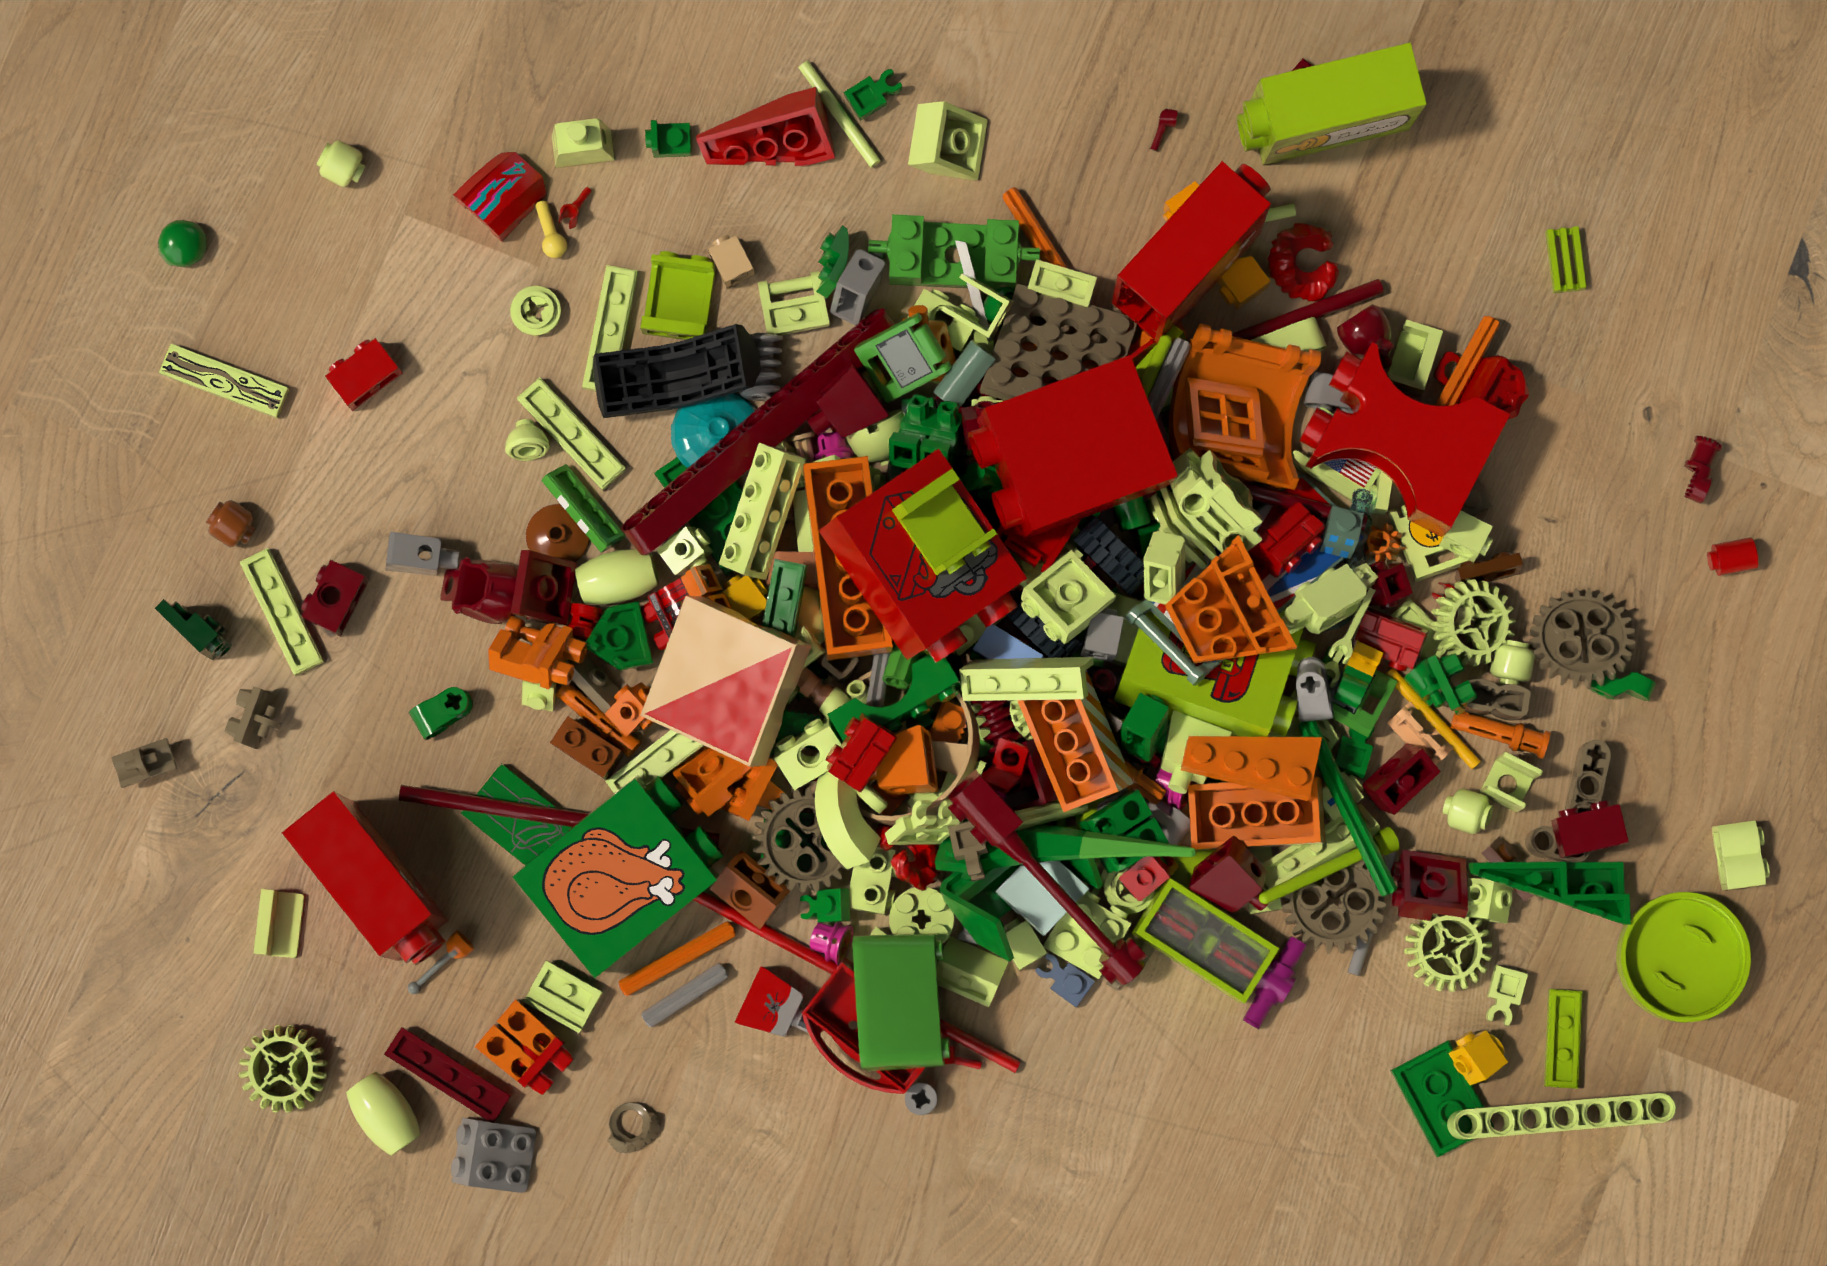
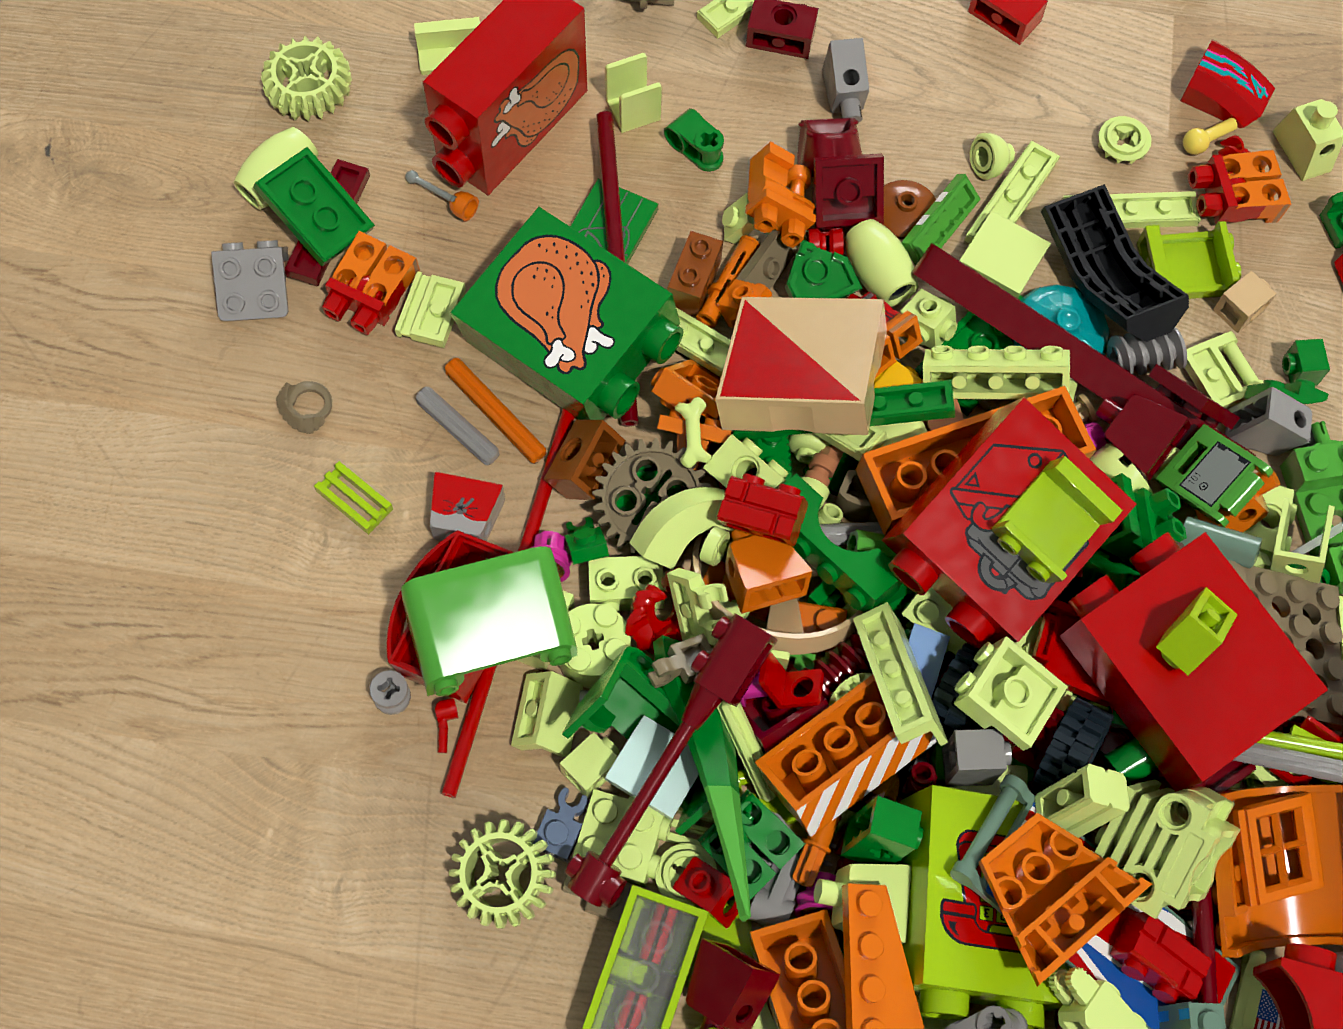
camera: 70 degrees right, 15 degrees down
(367, 761) = (628, 94): none -> yellowish green piece
(439, 1083) = (313, 205): none -> green tile
(616, 236) = (1240, 187): none -> hips
(634, 462) = (1005, 253): none -> yellowish green tile
(709, 1116) = (332, 478): none -> lime tile
(747, 788) = (694, 451): none -> yellowish green piece
(803, 230) = (1306, 361): none -> green plate
(821, 345) = (1192, 399): none -> dark red plate
(1066, 444) = (1196, 632): none -> lime slope
(1110, 1031) = (483, 845): none -> yellowish green gear

